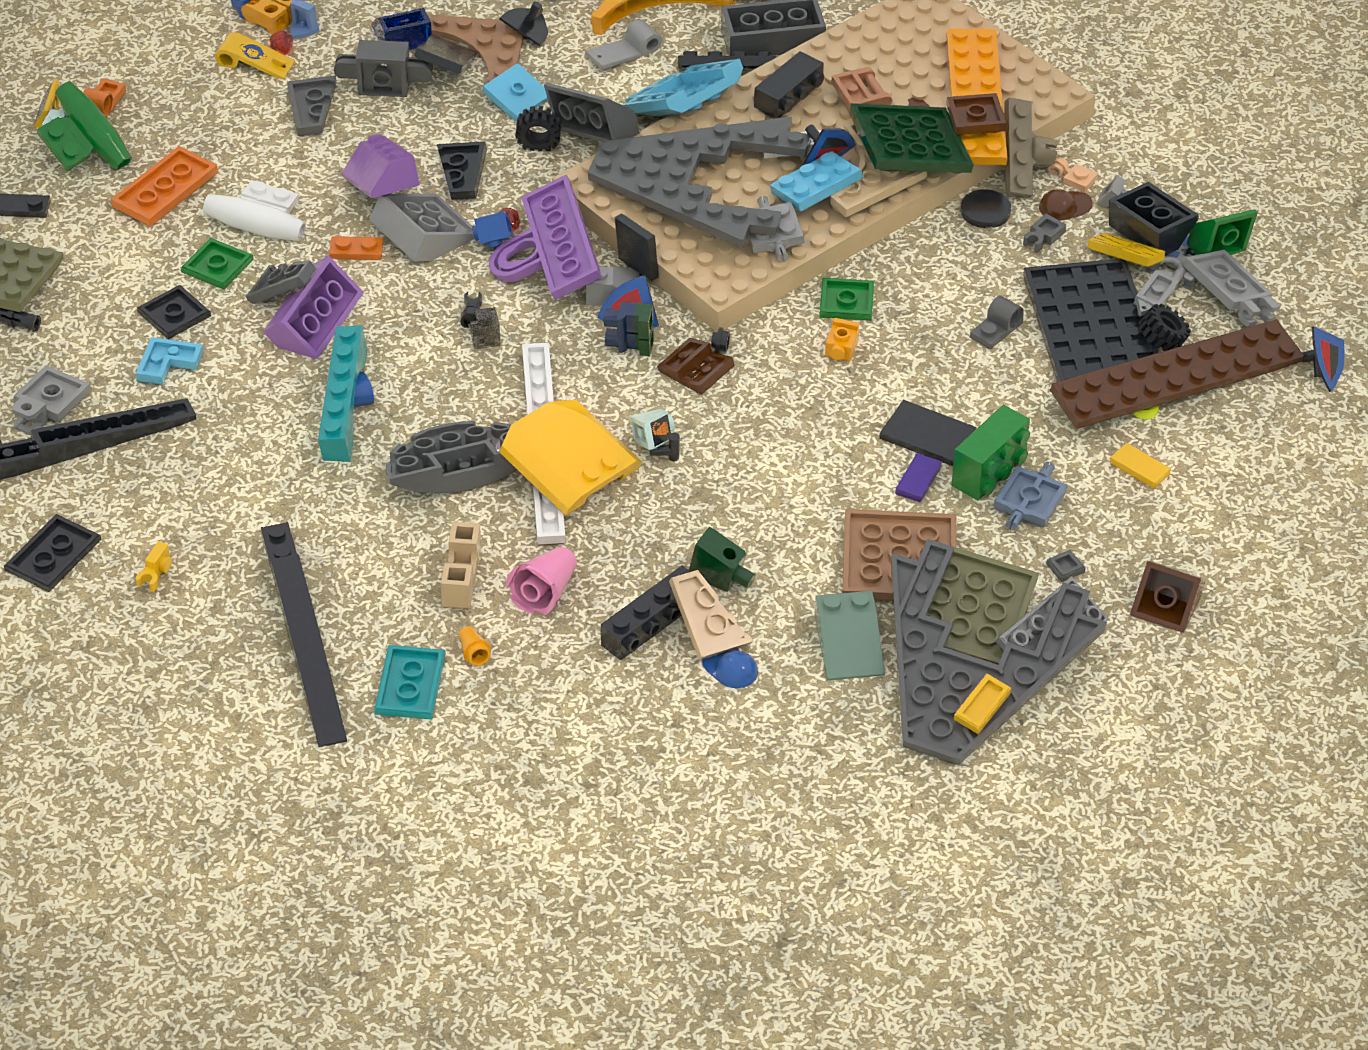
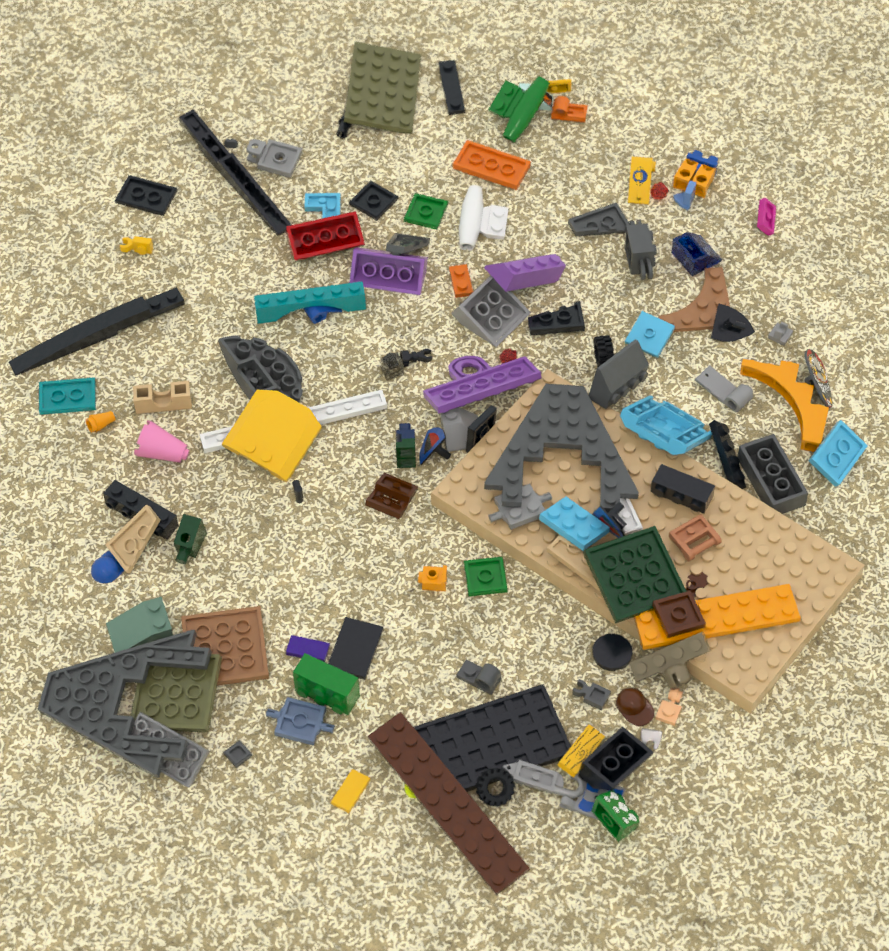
camera: 80 degrees right, 10 degrees up
(232, 360) = (324, 236): none -> red slope
(445, 54) = (666, 280): black tile -> none
(493, 229) = (491, 348): blue brick -> none
(652, 428) = (309, 476): light aqua slope -> none
(720, 340) = (416, 504): black plate -> none
(982, 703) = (78, 711): yellow tile -> none
(1167, 596) = (215, 821): reddish brown slope -> none
(1233, 286) = (562, 830): light grey tile -> none
(1327, 357) = (492, 907): shield -> none

